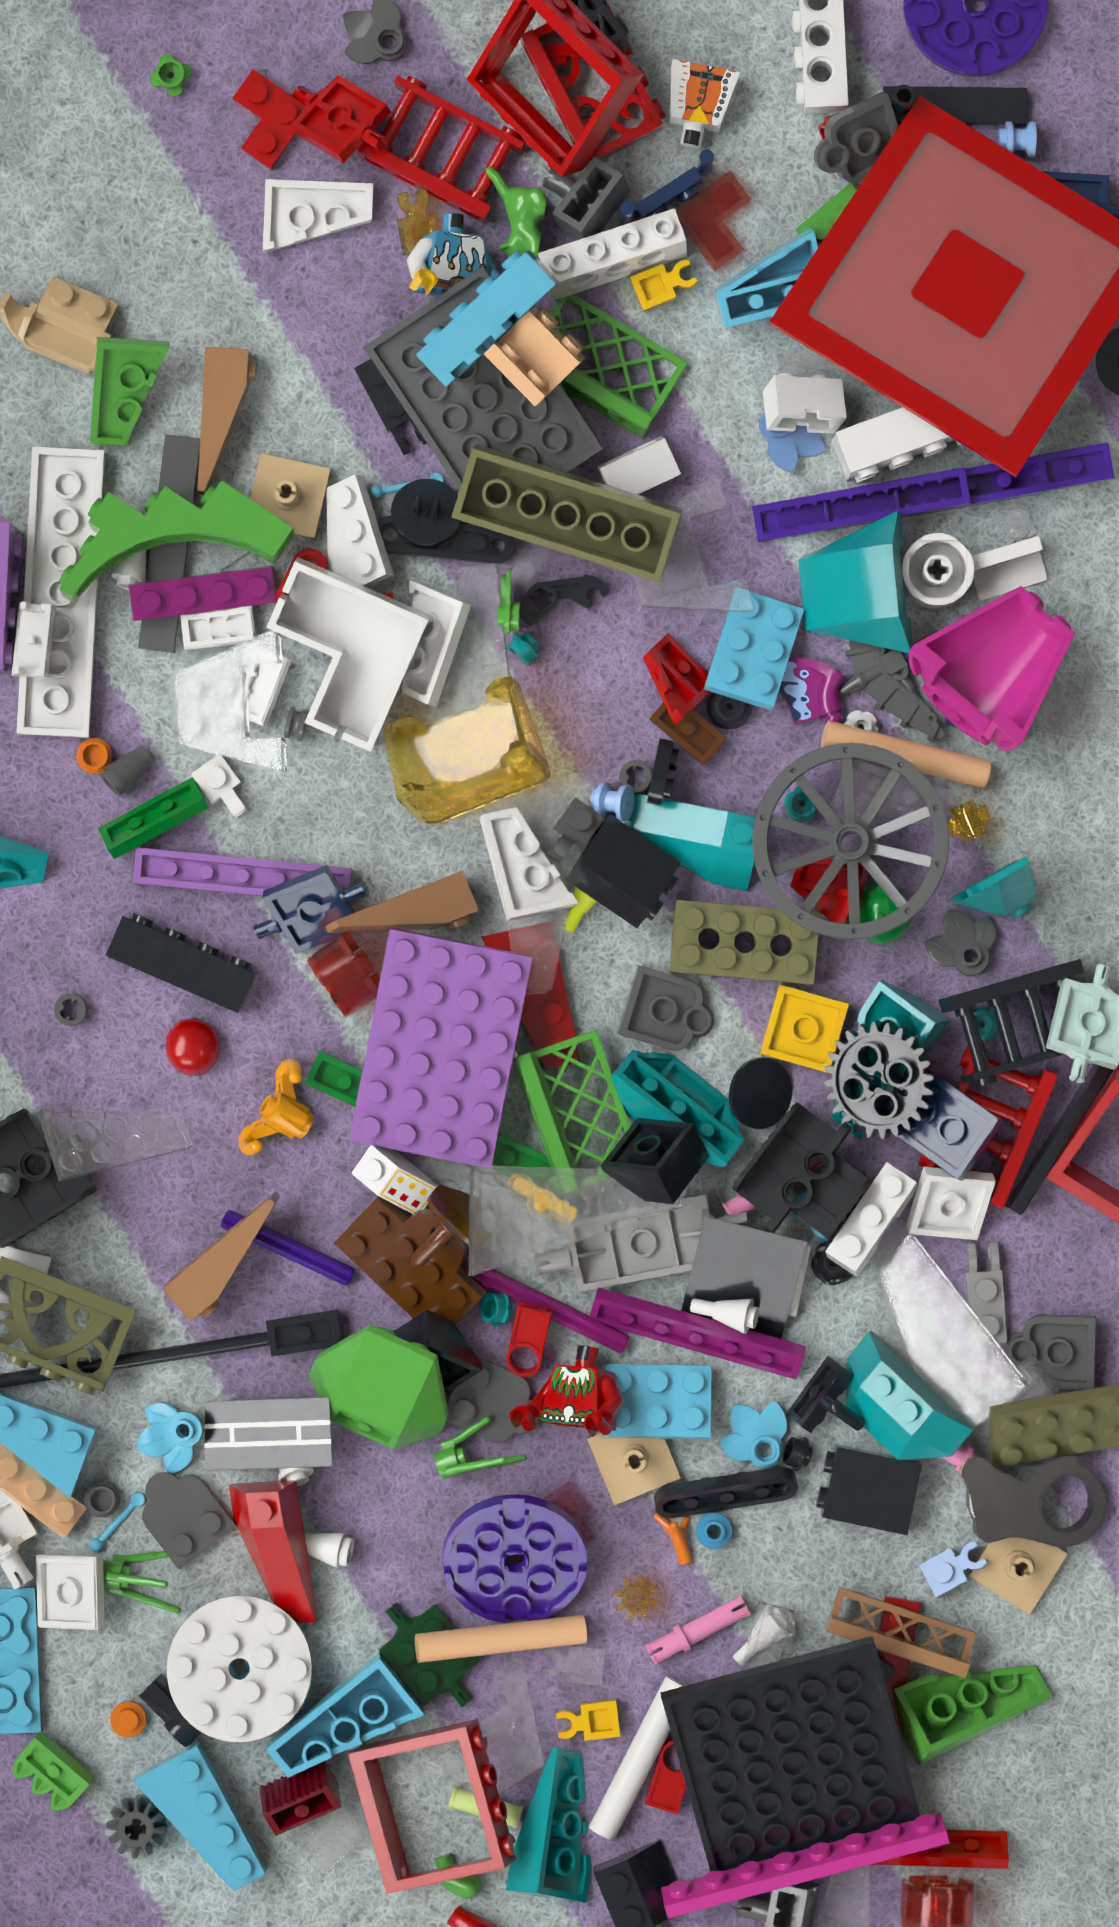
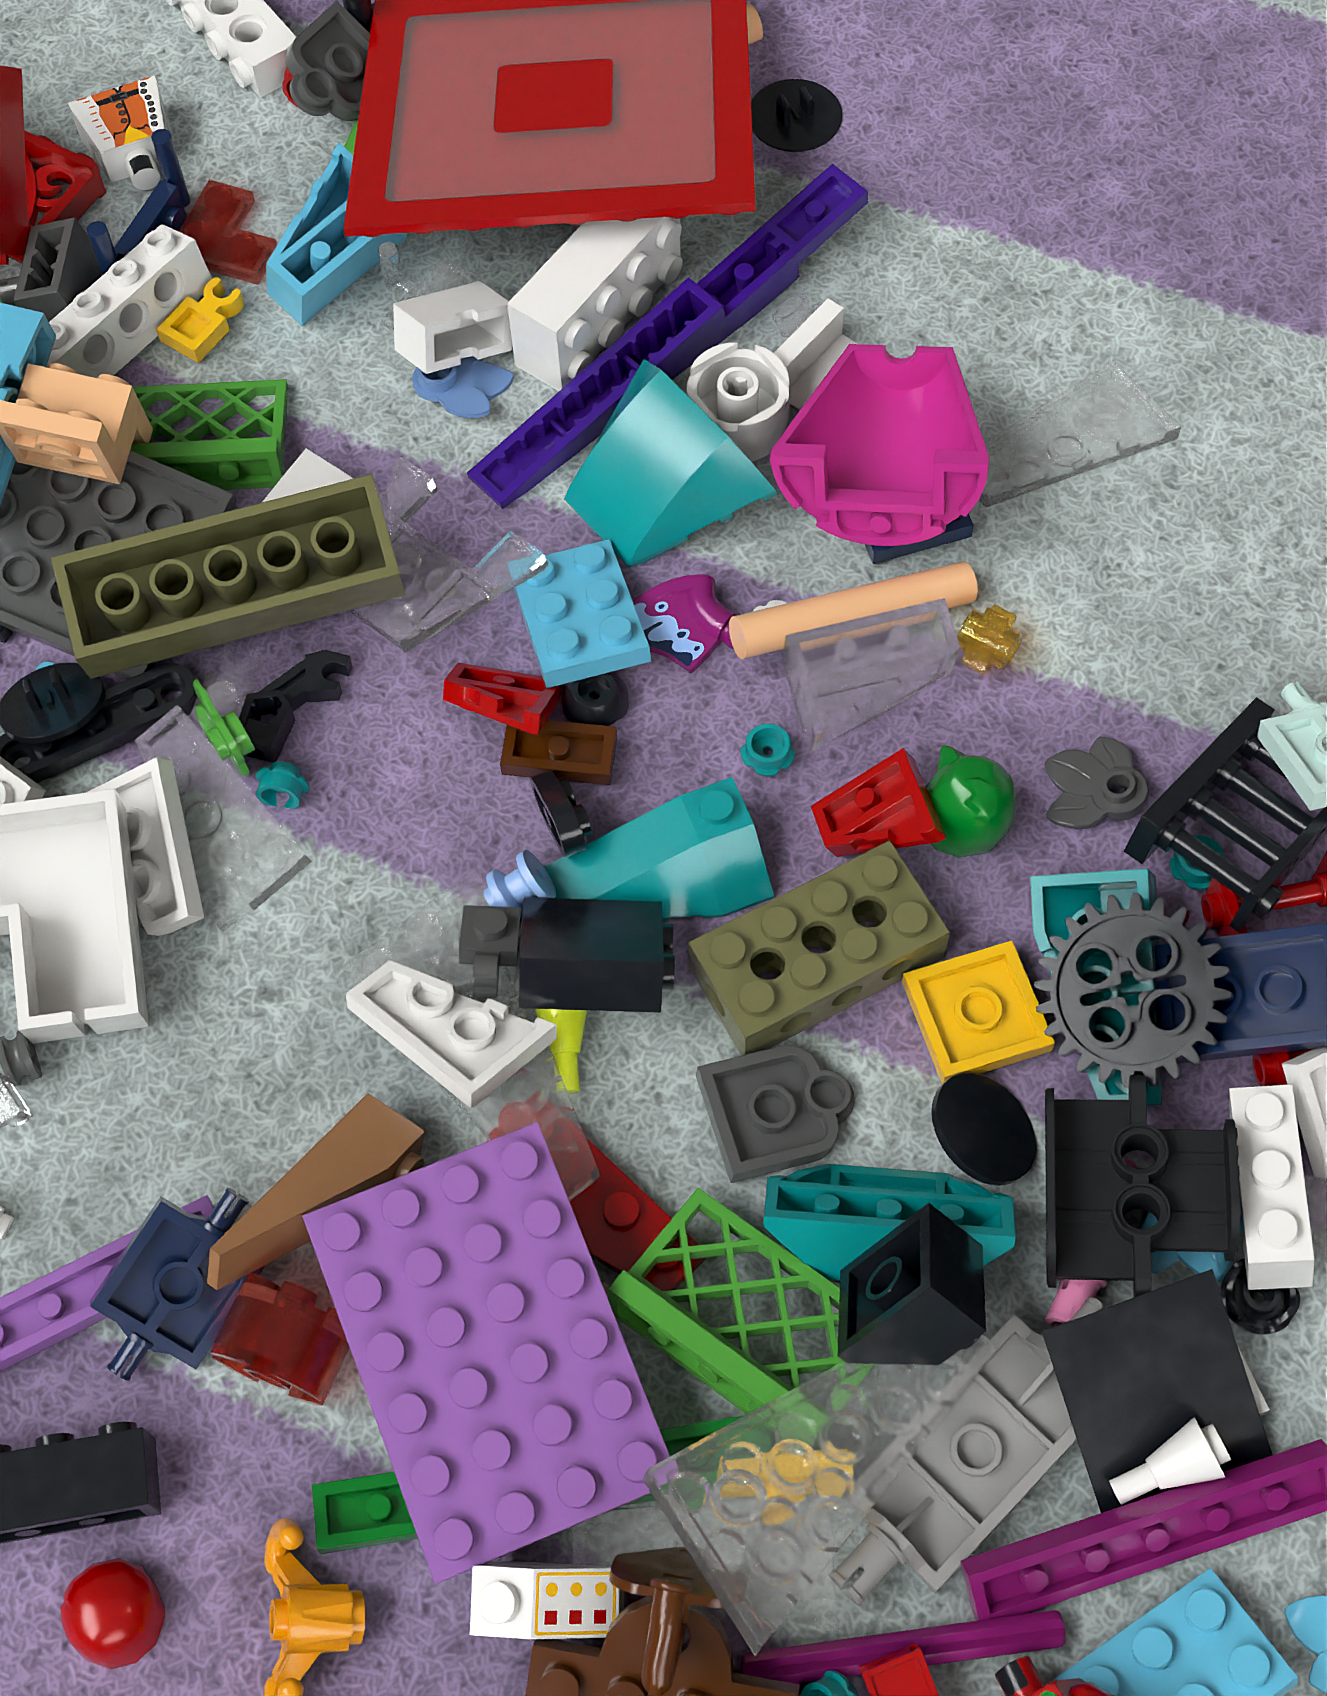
camera: 30 degrees left, 25 degrees down
(466, 756) = (288, 947): clear yellow windscreen -> none
(646, 775) = (530, 829): dark grey bush -> none
(795, 773) = (866, 711): dark grey wheel -> none
(886, 679) = (760, 553): dark grey bar -> none
(1001, 892) = (1101, 666): teal wedge -> none

